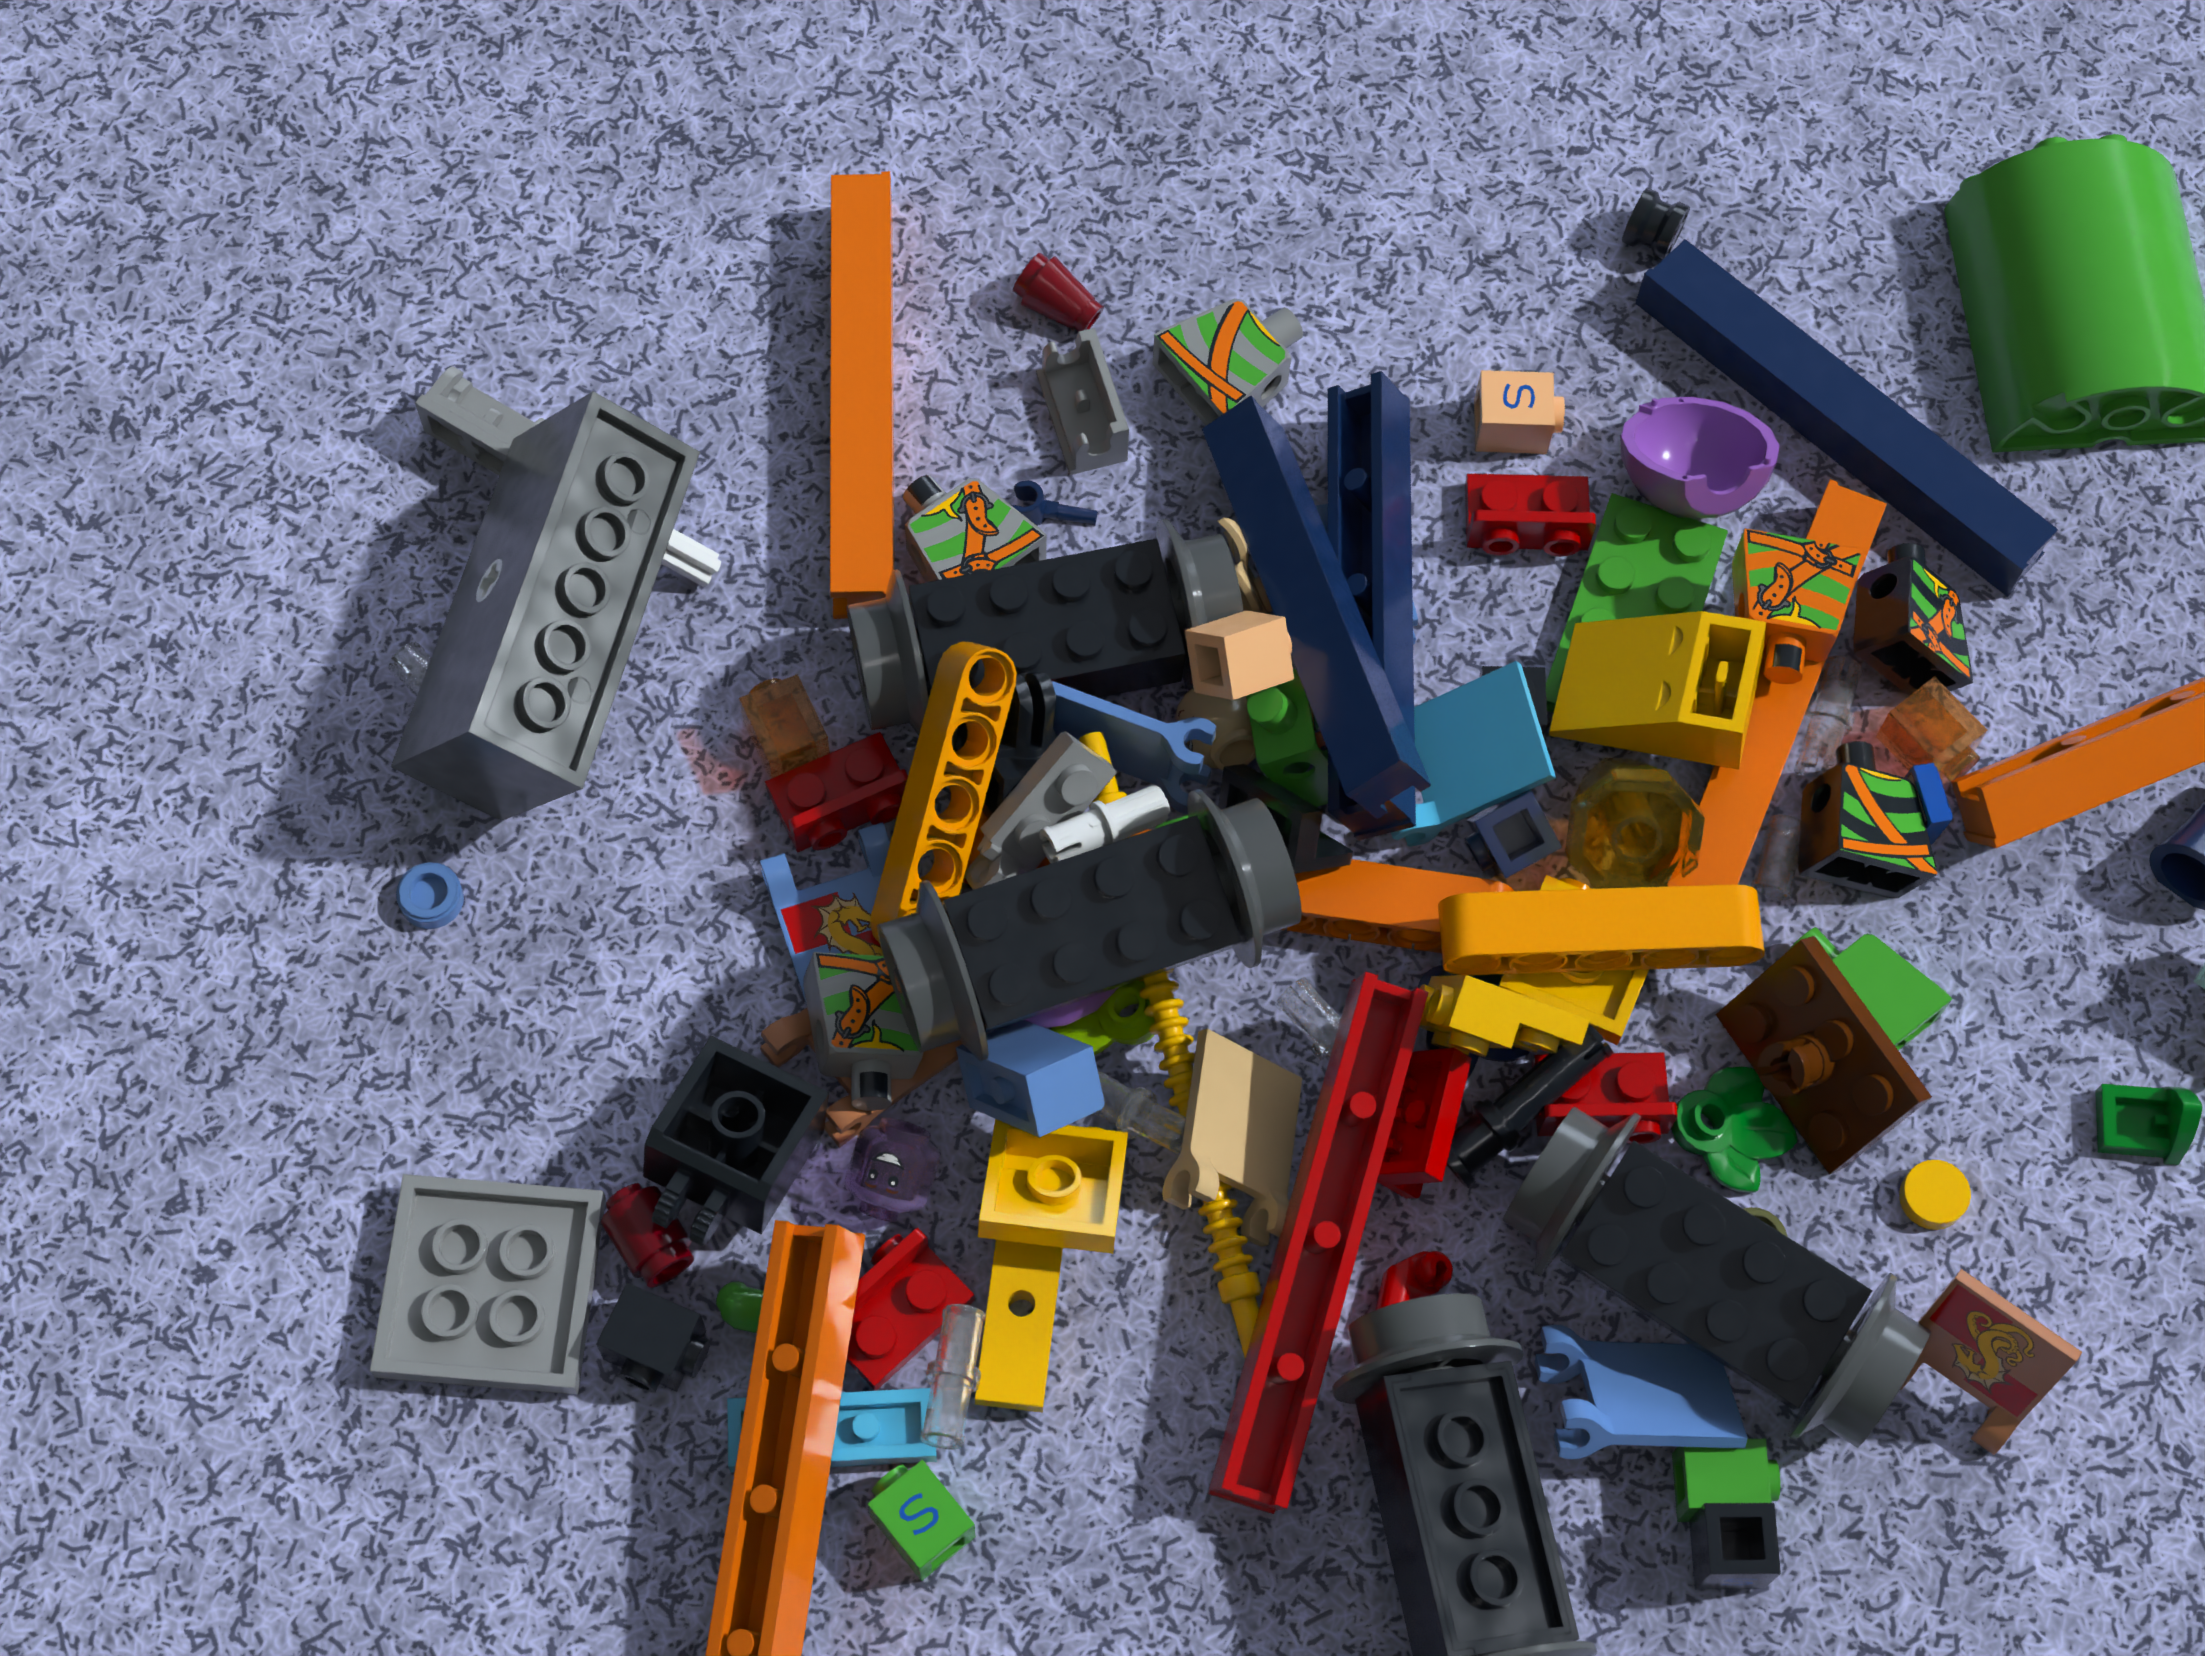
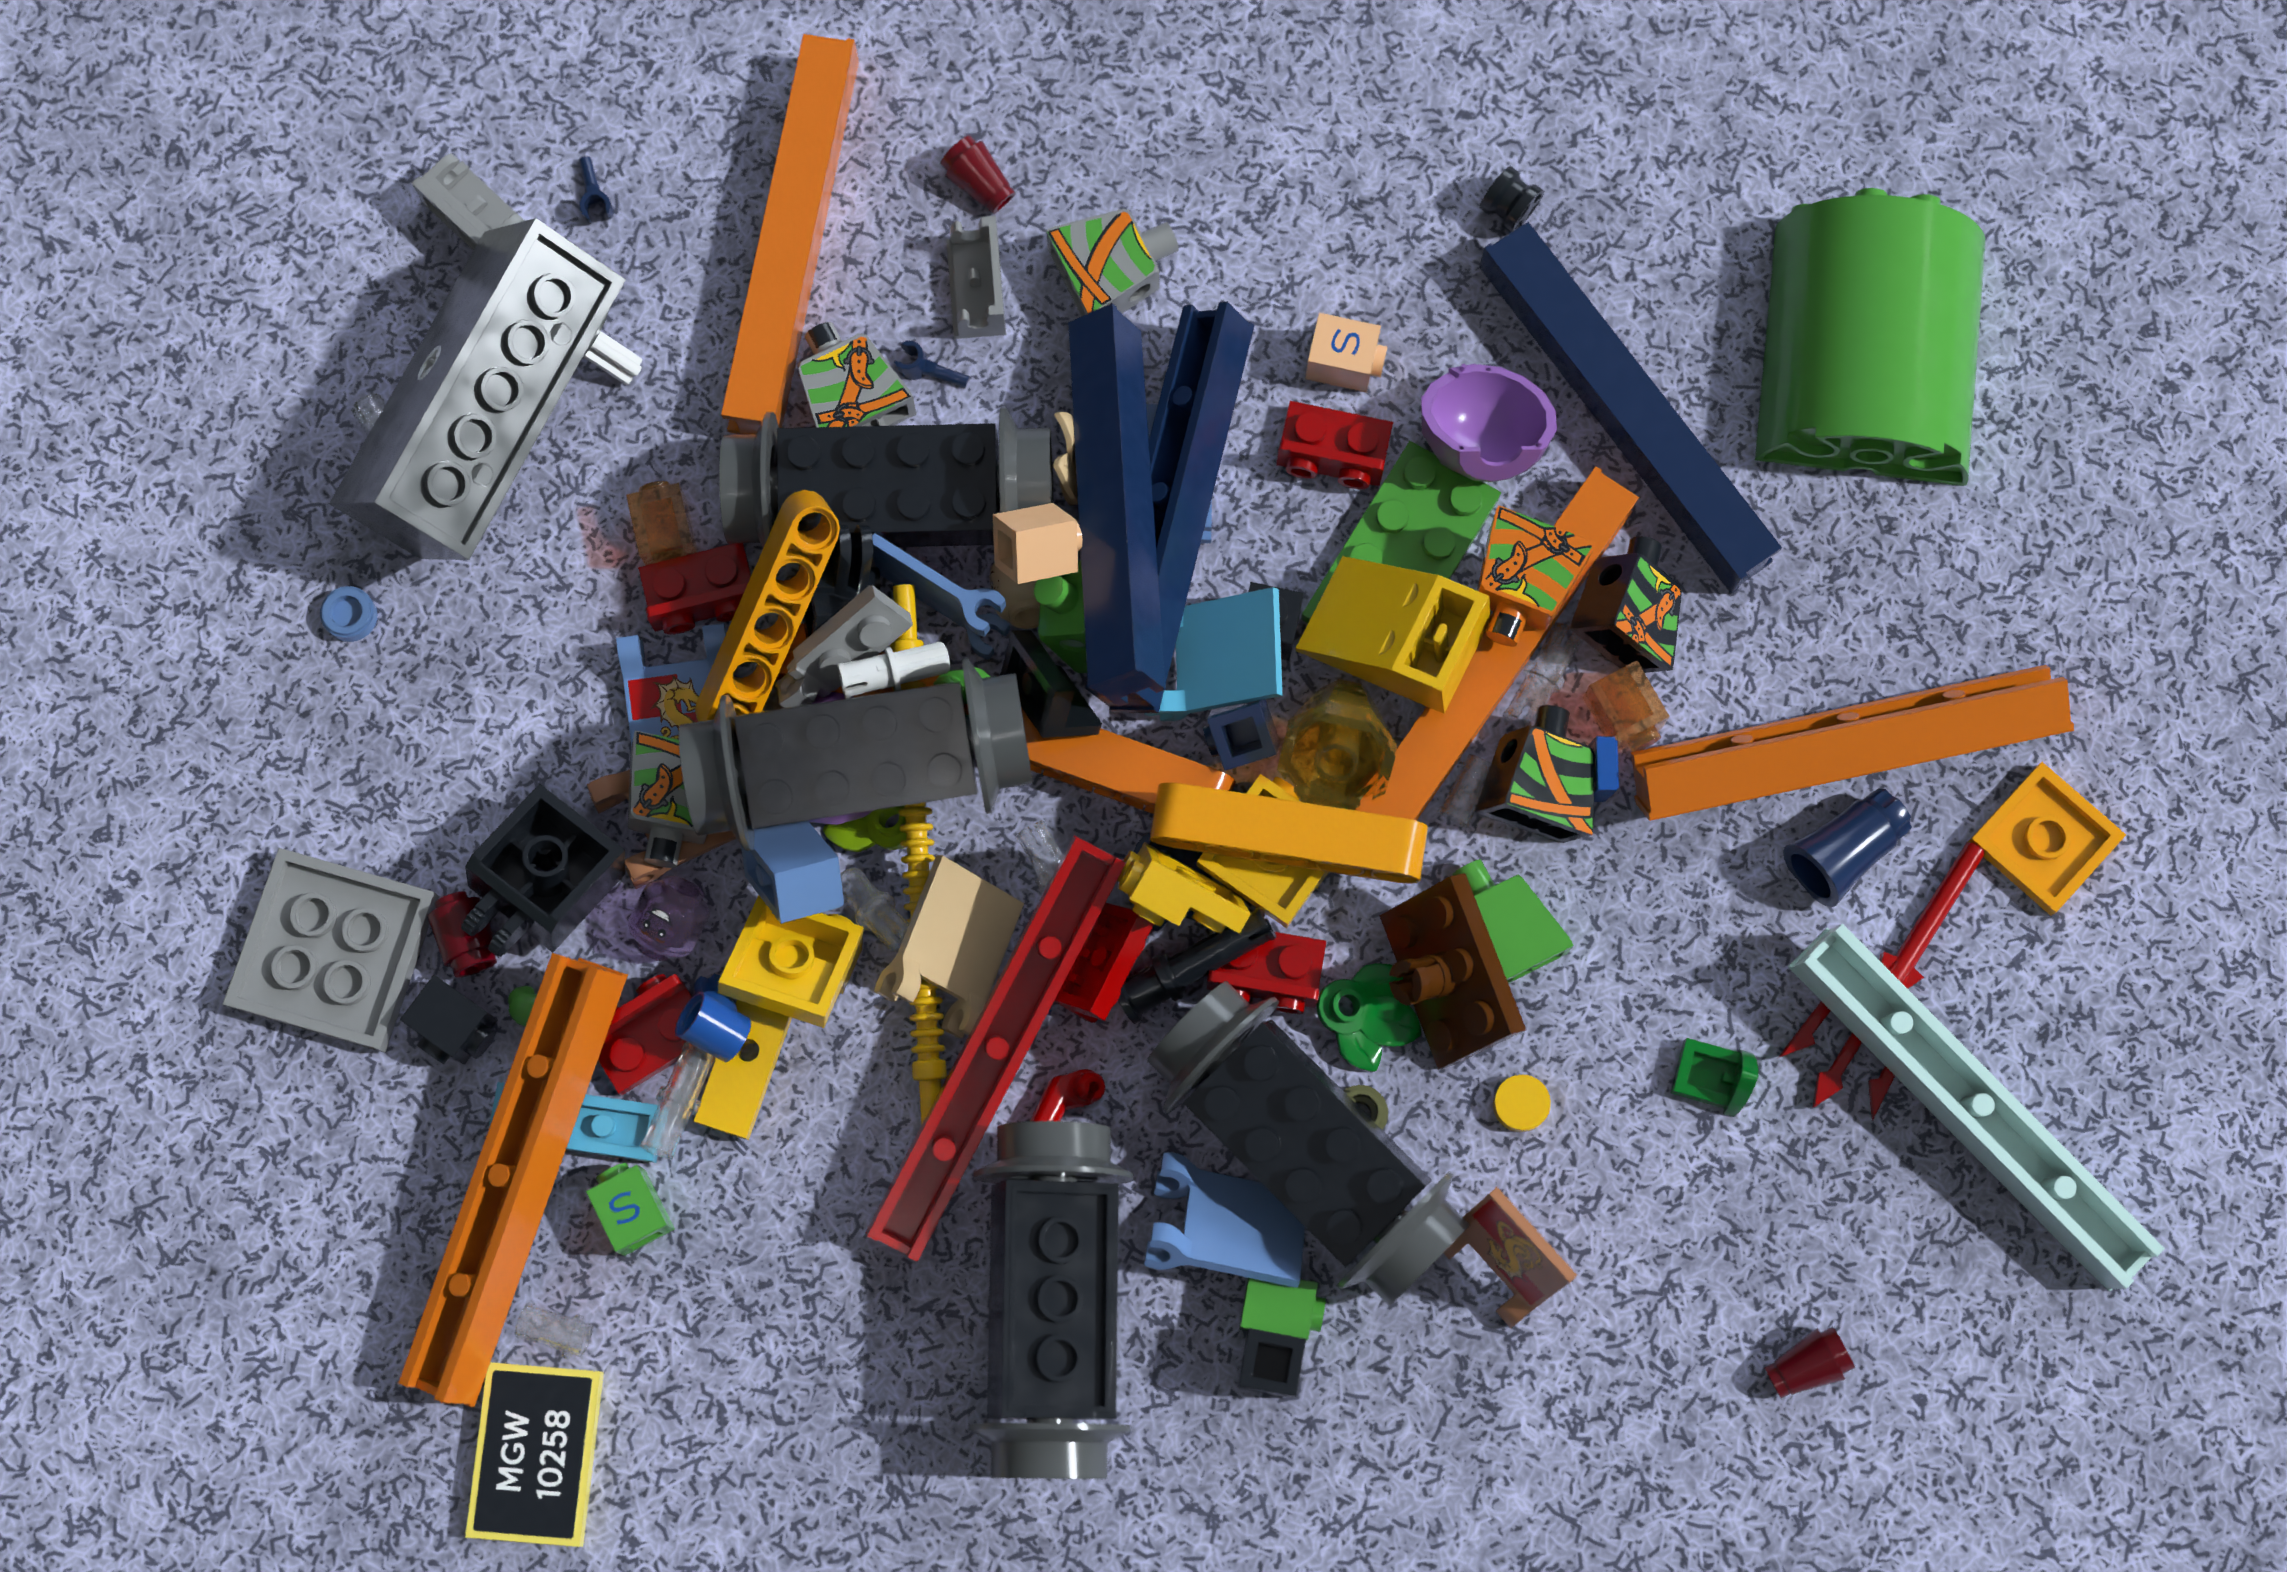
camera: 15 degrees right, 10 degrees up
(620, 385) = (592, 190): none -> dark blue hand
(978, 1273) = (712, 1021): none -> blue axle

